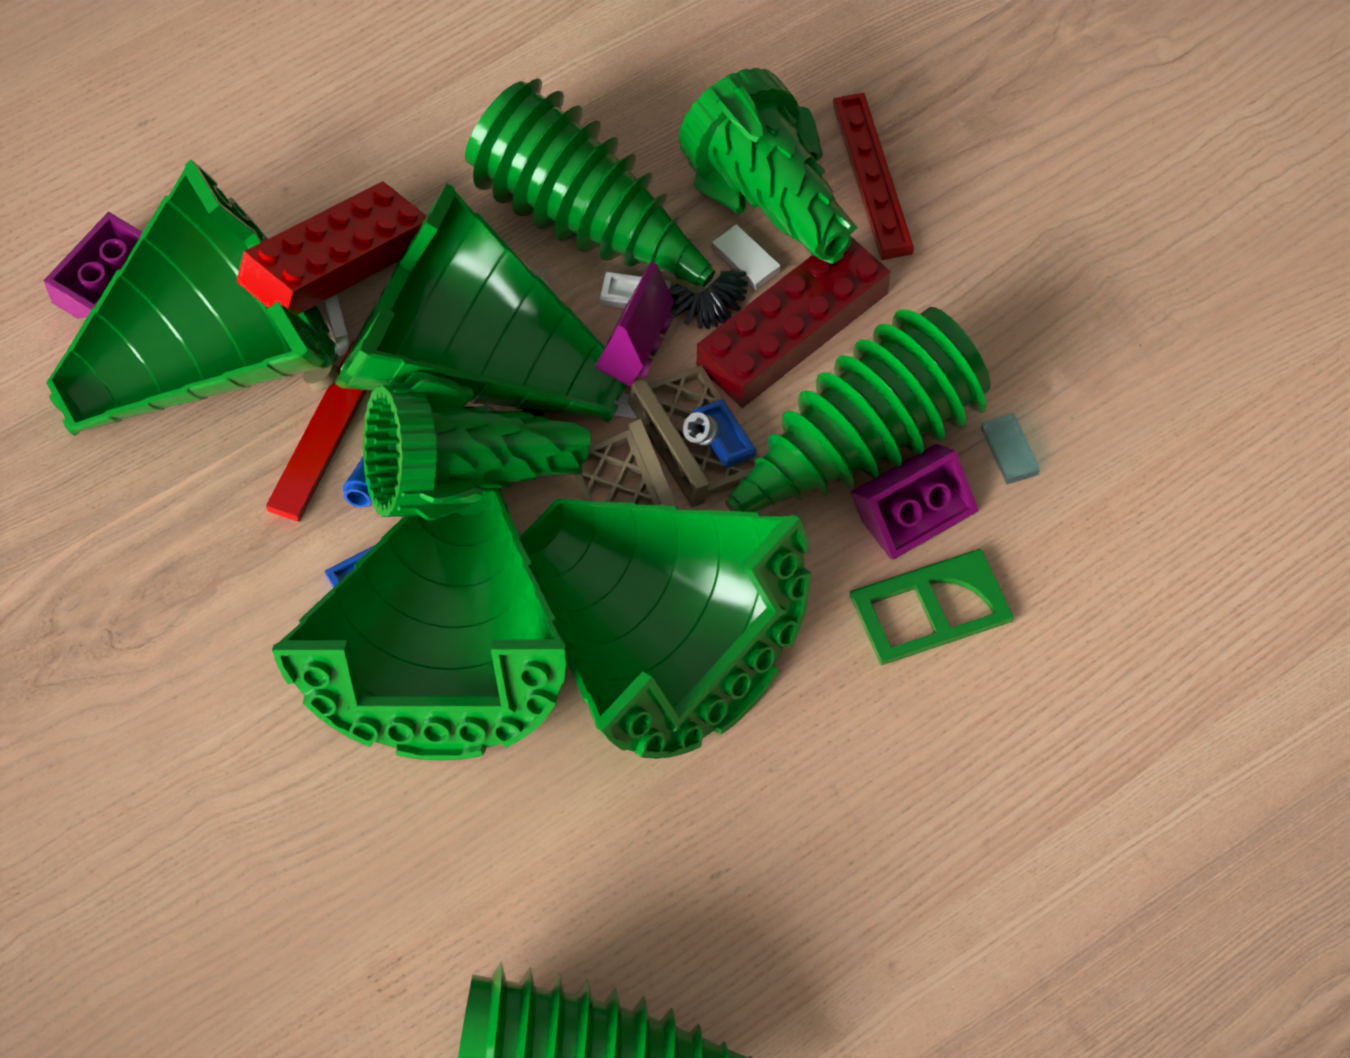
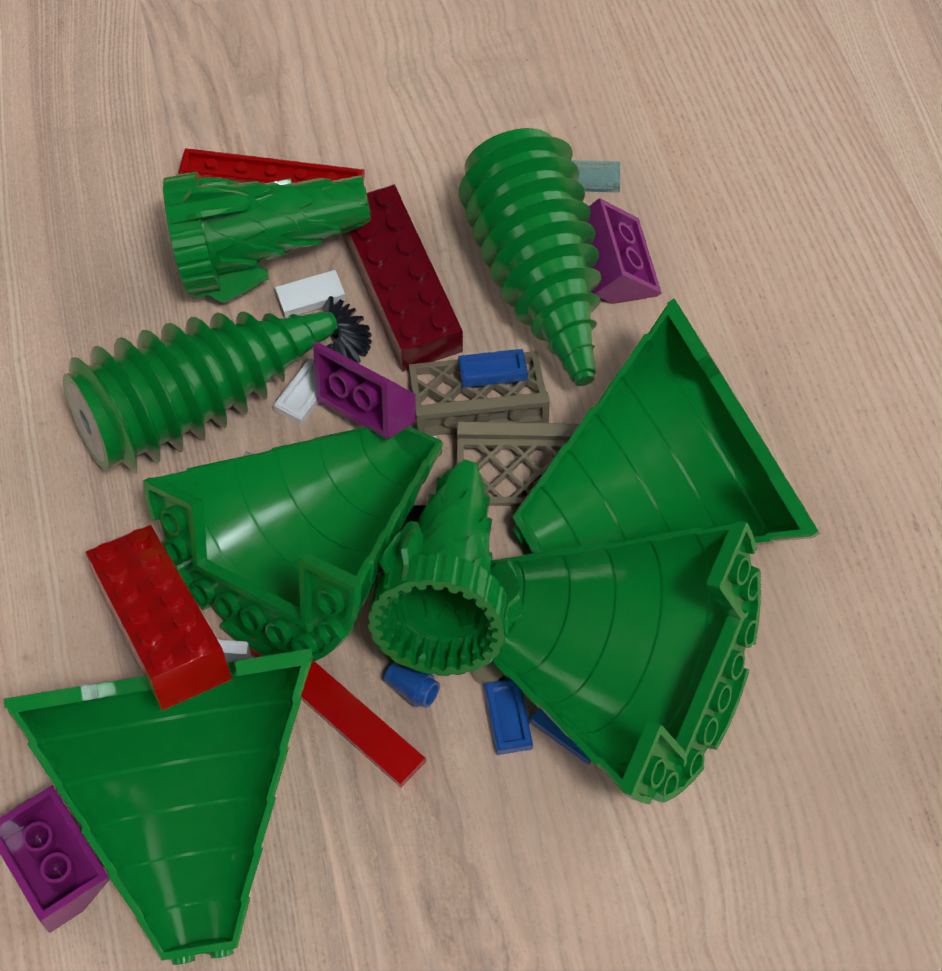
camera: 70 degrees left, 0 degrees up
(690, 426) = (499, 380): light grey bush -> none
(965, 570) = (690, 248): green window -> none

